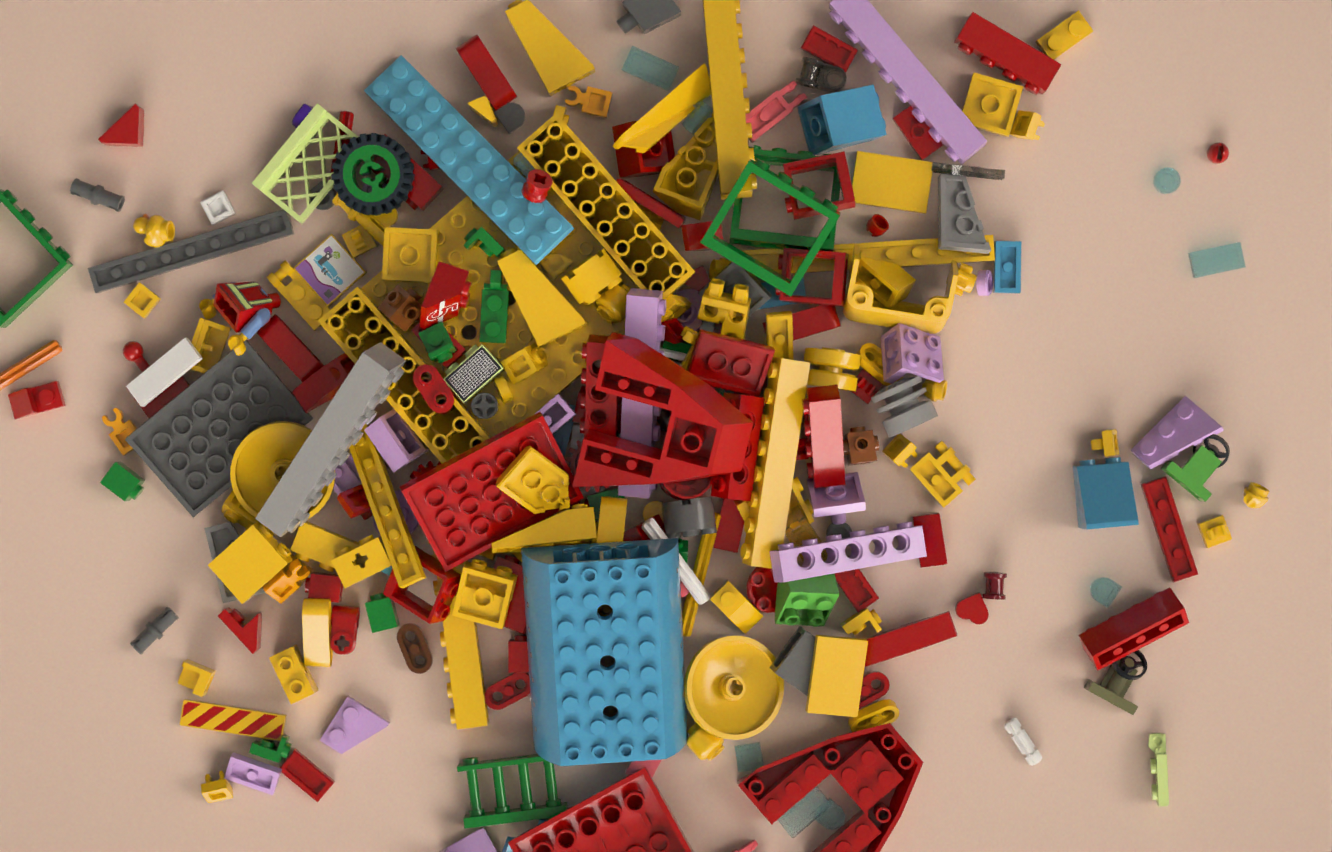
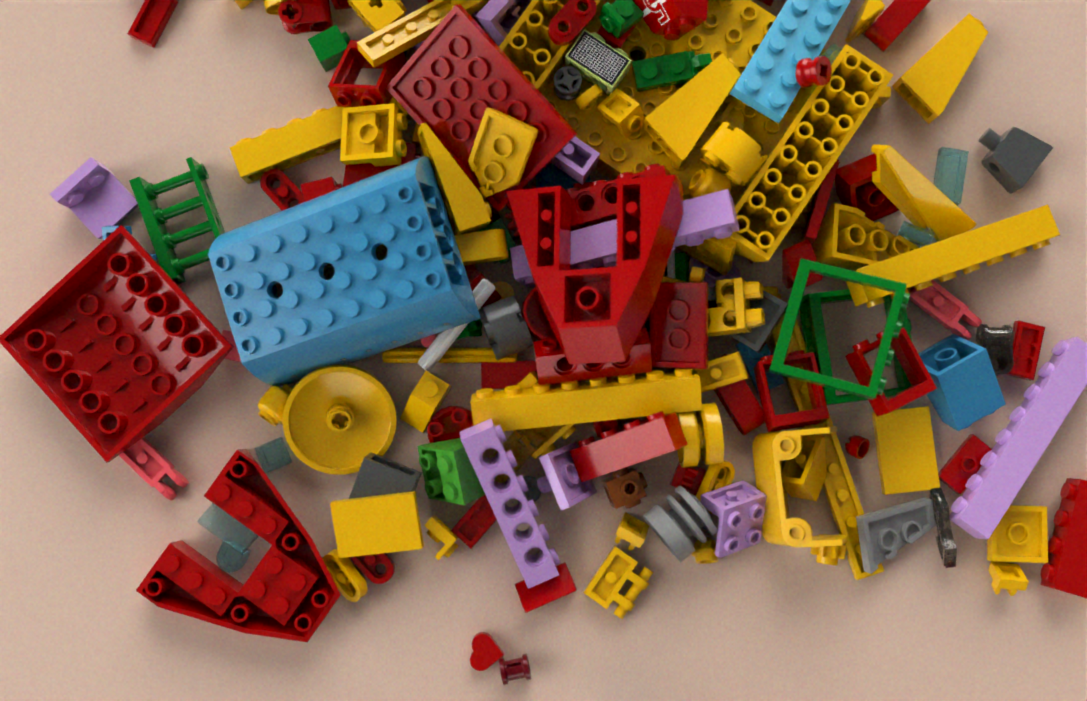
camera: 80 degrees right, 5 degrees down
(352, 726) = (212, 49): lavender wing -> none
(413, 648) = (302, 87): reddish brown plate -> none
(488, 245) = (739, 35): green bracket -> none
(511, 116) = (865, 46): dark grey tile -> none
(594, 101) = (900, 127): light orange plate -> none
(673, 330) = (694, 257): red slope -> none
(698, 279) = (751, 272): red tile -> none
(909, 638) = (437, 592): red slope -> none
(984, 282) = (831, 575): lavender tile -> none
(1007, 267) = (853, 595): dark azure plate -> none

